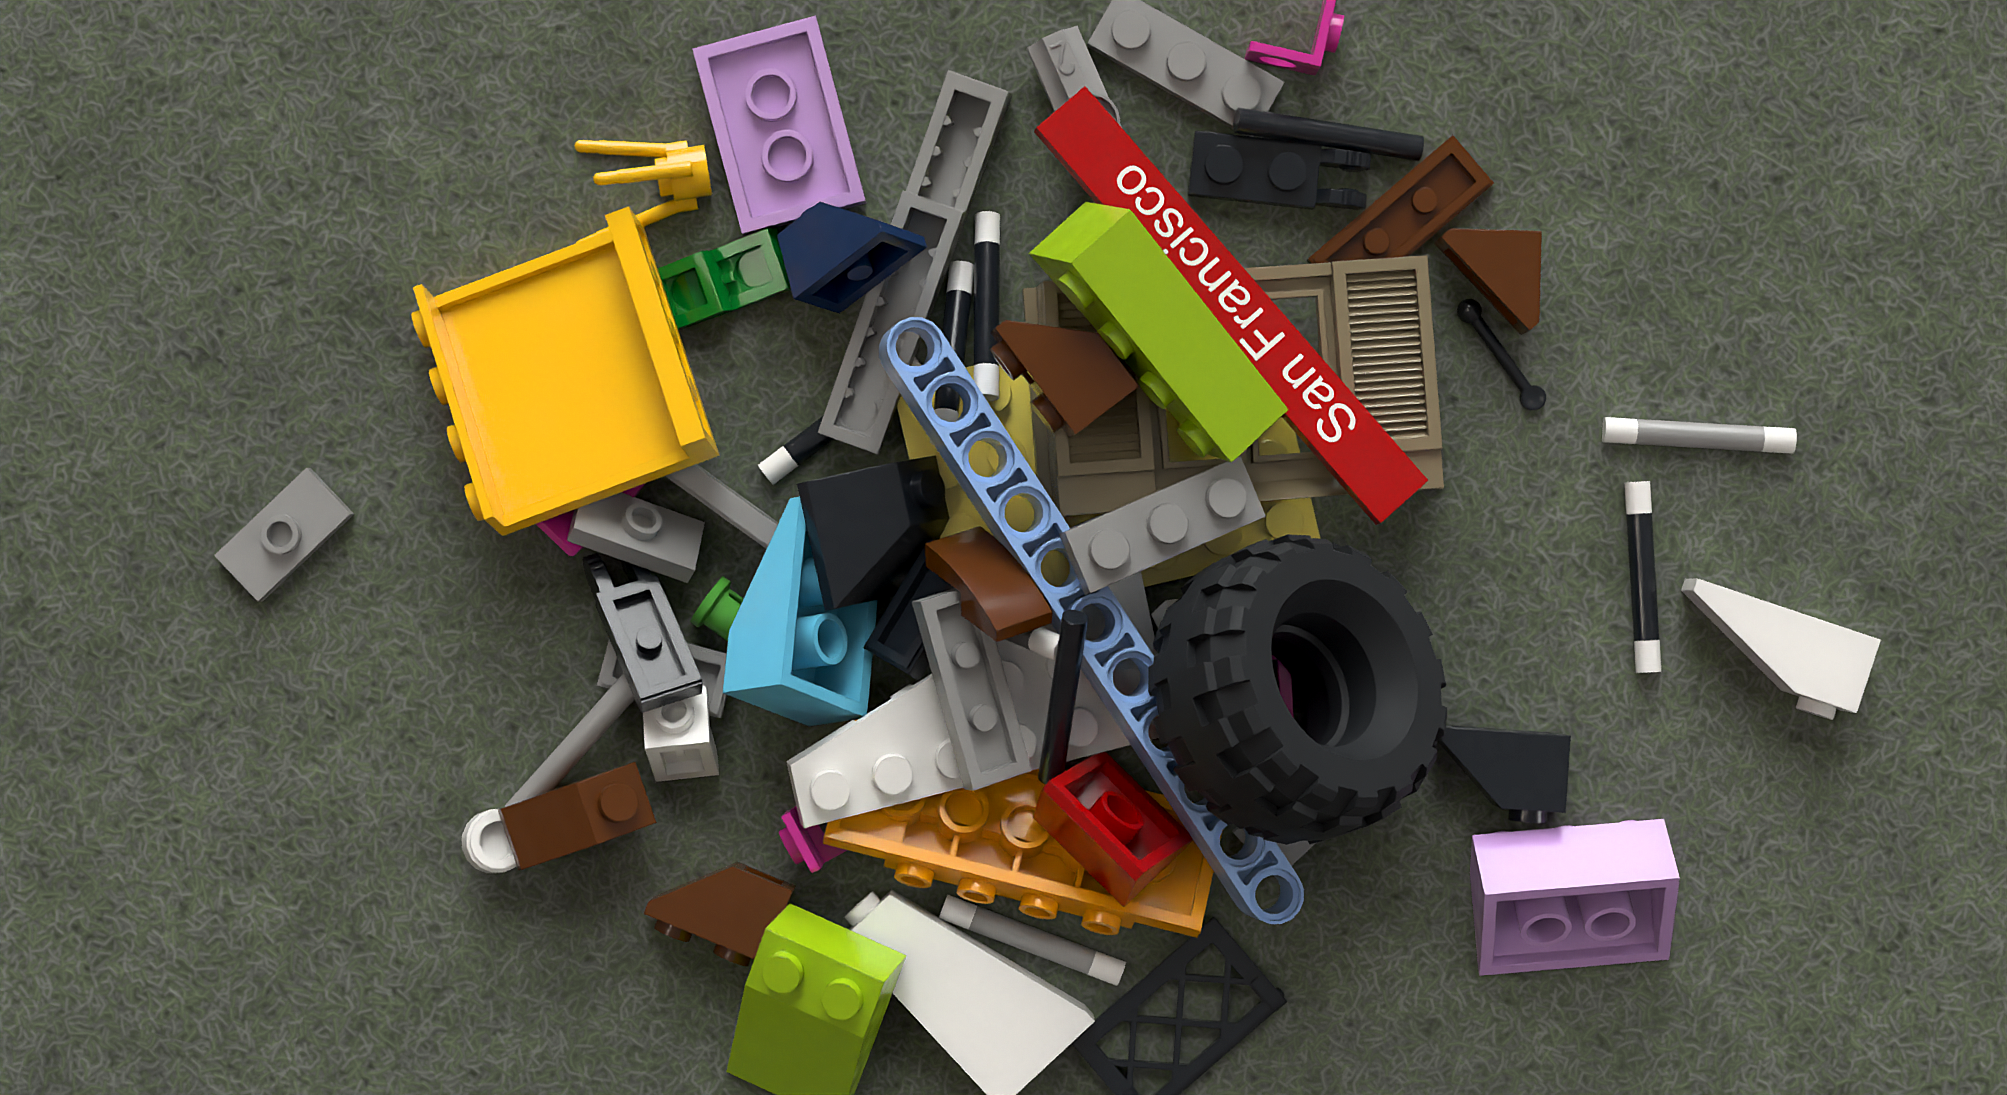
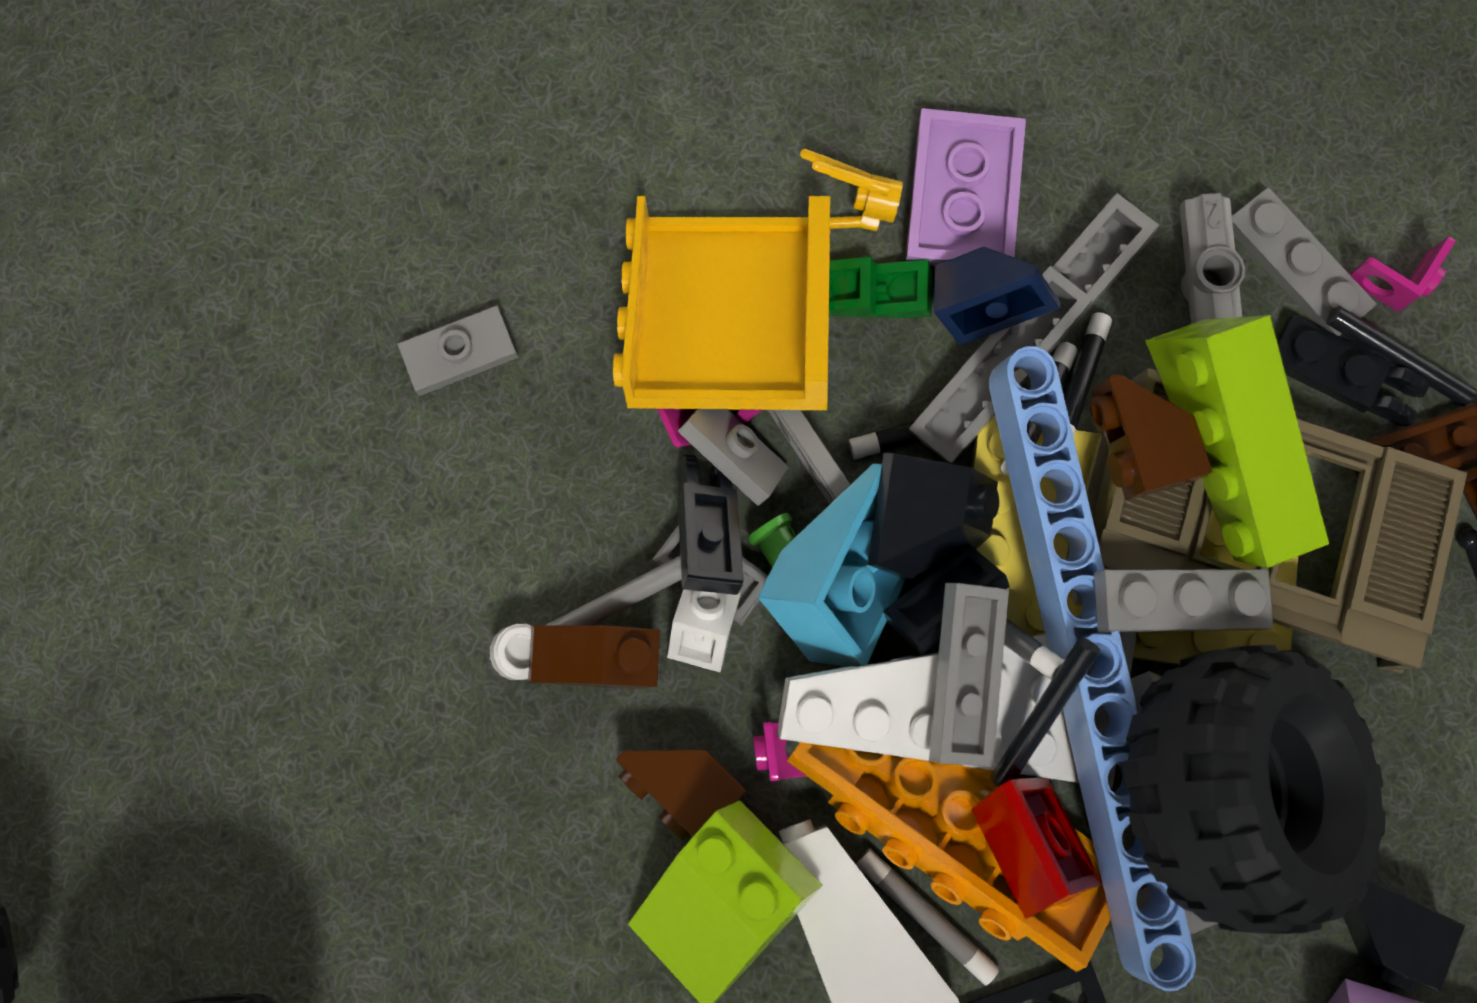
camera: 25 degrees right, 10 degrees down
(991, 583) = (1020, 593): reddish brown slope -> none
(1318, 401) = (1349, 564): red tile -> none

